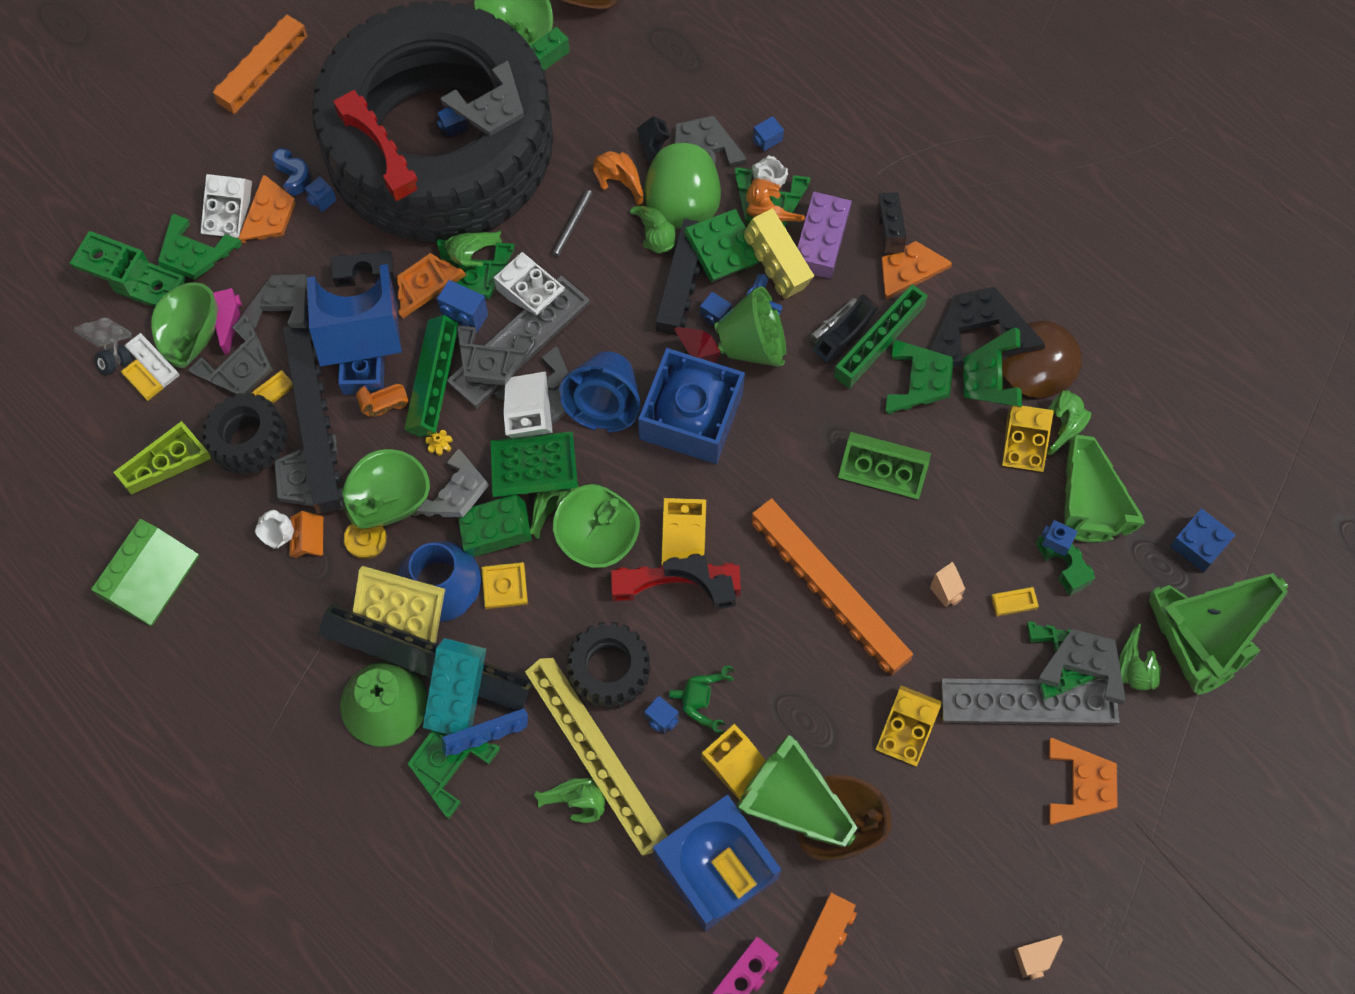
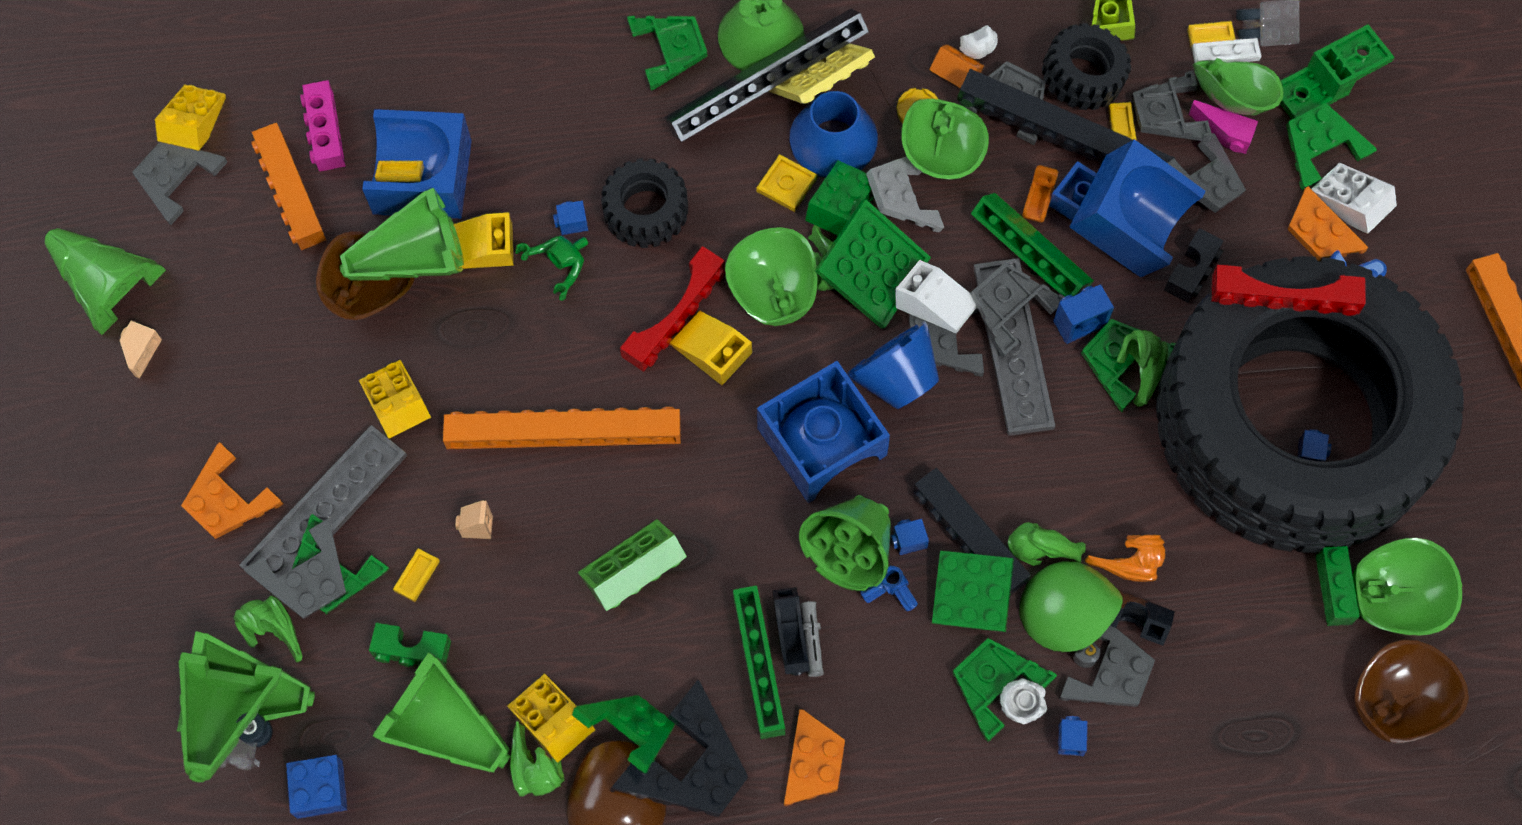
camera: 130 degrees right, 0 degrees up
(424, 282) = (1138, 305): orange wing -> none
(439, 442) = (963, 219): yellow plant -> none
(454, 686) = (719, 71): teal brick -> none
(484, 732) = (669, 69): blue plate -> none
(493, 110) = (1256, 427): dark grey wing -> none
(527, 284) = (1064, 387): white slope -> none
(572, 222) = (1111, 482): flat silver bar -> none
(577, 793) = (557, 117): bright green hair -> none
(596, 755) = (577, 144): light yellow brick -> none
(695, 568) = (631, 323): black arch -> none
(698, 343) = (881, 479): dark red slope -> none
(759, 200) = (985, 659): orange hair -> none
(778, 254) = (917, 624): light yellow brick -> none
(823, 233) = (913, 698): medium lavender brick -> none
(891, 218) = (880, 777): black arch -> none
(929, 377) = (682, 673): green wing -> none
(1058, 537) = (427, 640): blue brick -> none

